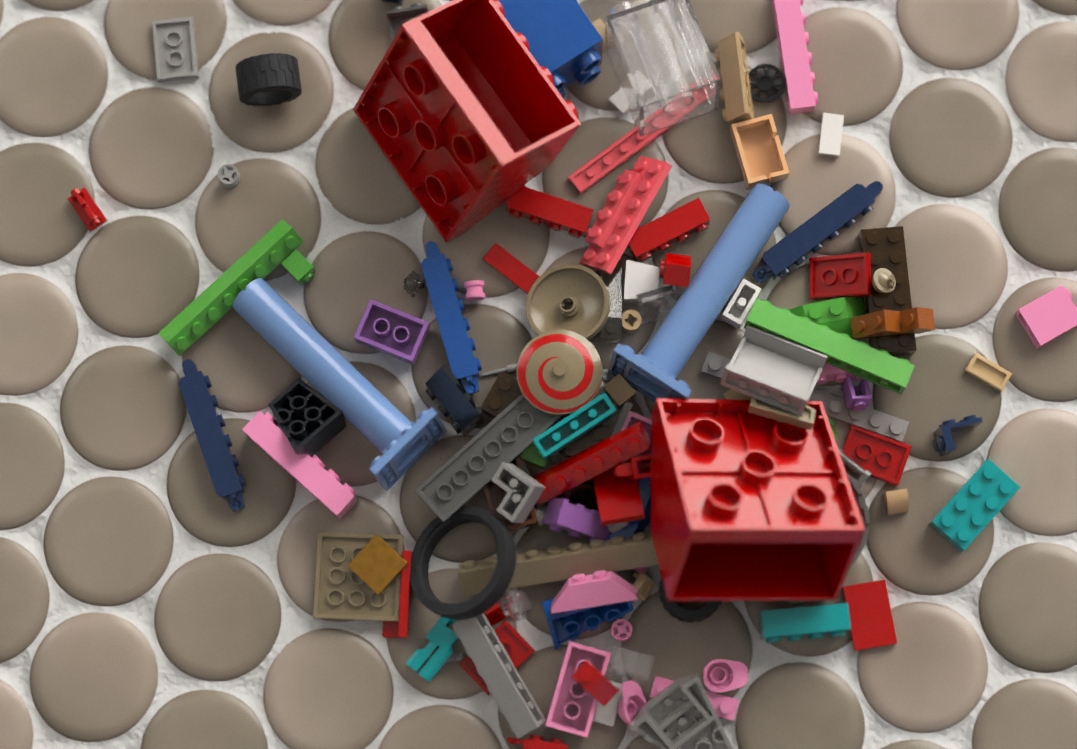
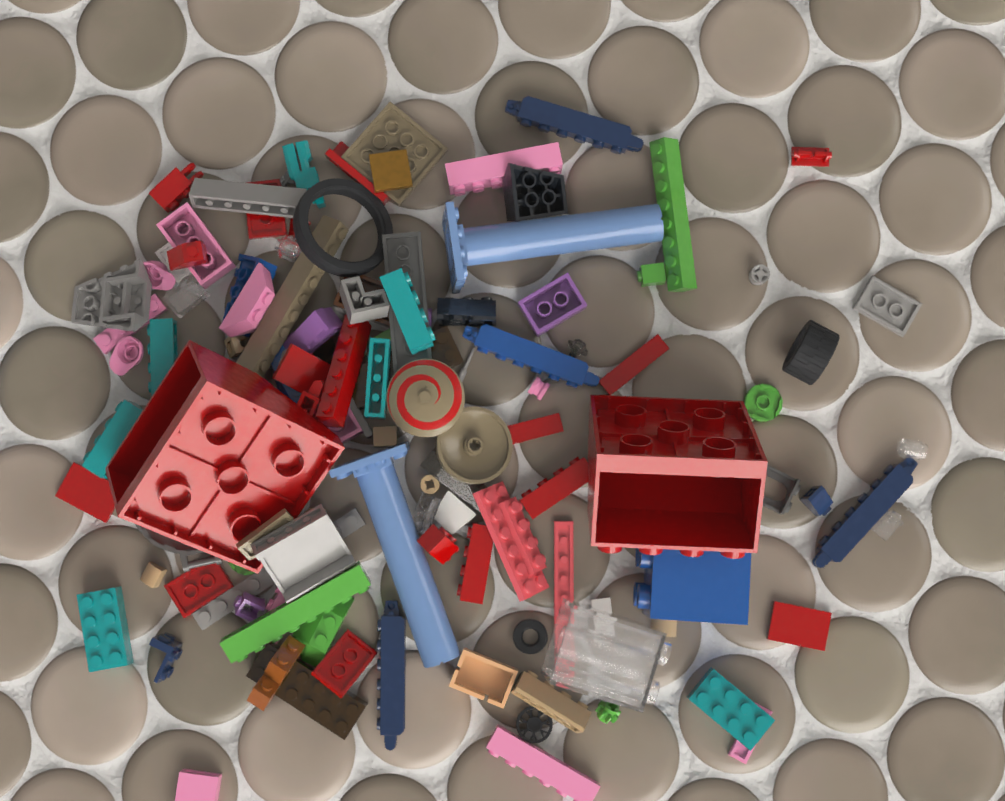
camera: 125 degrees right, 5 degrees up
(340, 93) = (763, 402): none -> bright green tile
(390, 225) = (633, 364): none -> red tile
(496, 441) = (405, 307): none -> teal brick
(623, 627) = (212, 307): bright pink wheel -> none
(694, 153) = (518, 636): none -> black tyre
(700, 641) = (162, 350): none -> teal brick
(709, 28) = (607, 712): none -> bright green gear
(741, 304) = (379, 574): white brick -> none
(831, 134) = (457, 742): white tile -> none
(883, 280) = (312, 691): dark tan hat -> none
(988, 372) = (194, 718): tan tile -> none

